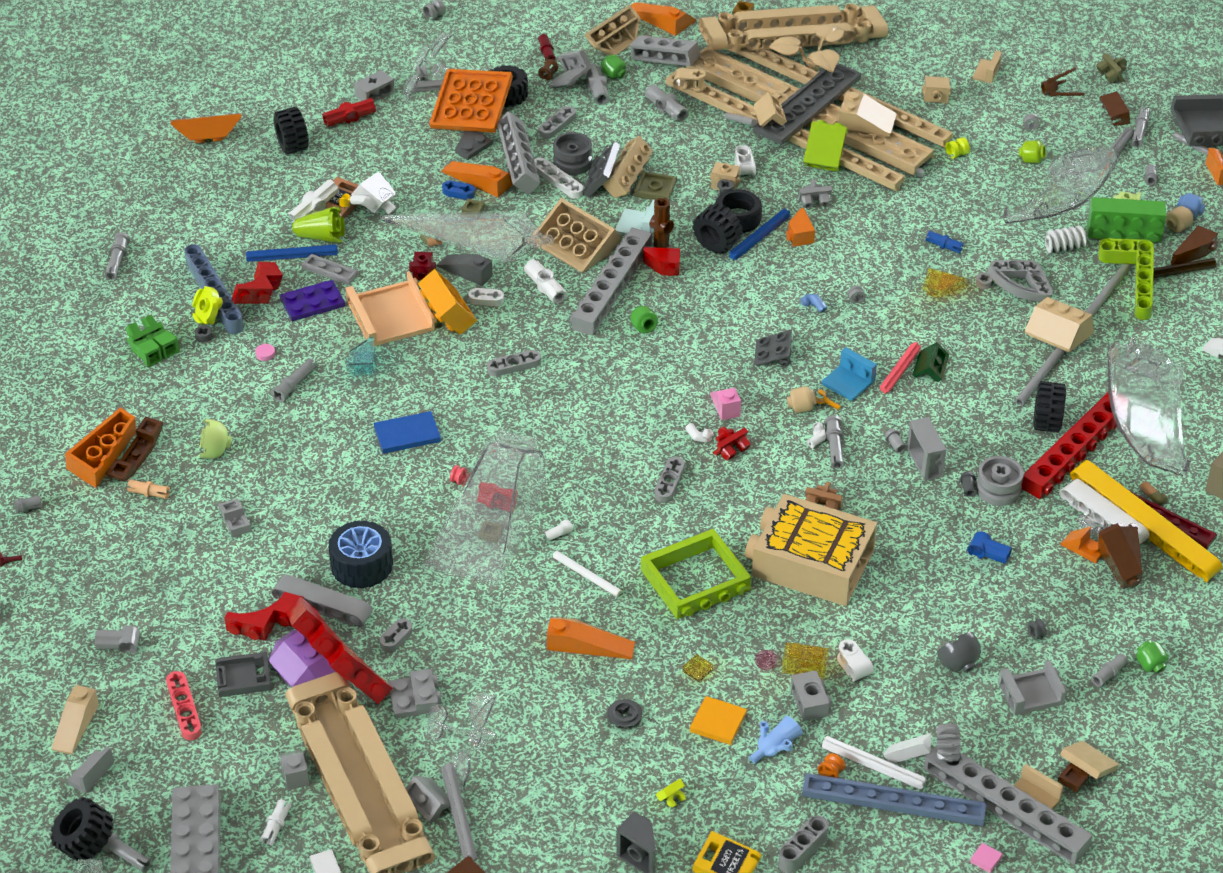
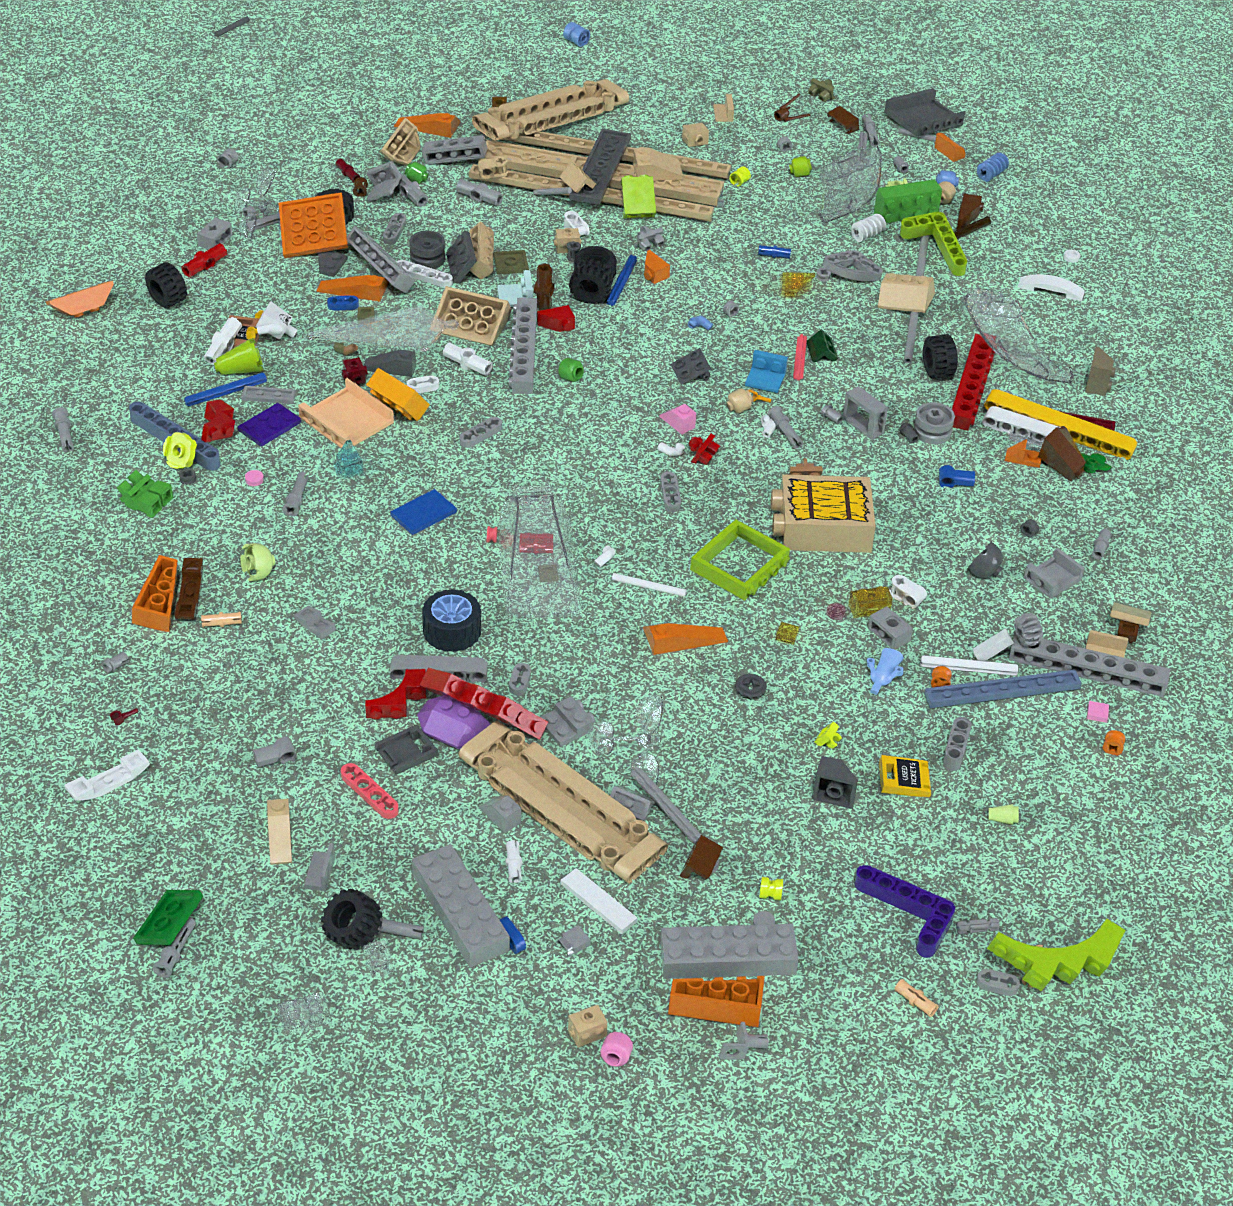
camera: 25 degrees left, 0 degrees up
(718, 720) = (828, 669): light orange tile -> none
(826, 59) = (599, 126): tan plant -> none
(1152, 656) = (1127, 524): bright green head -> none
(1157, 497) = (1051, 403): arm -> none
(1161, 574) = (1094, 462): none -> green plate

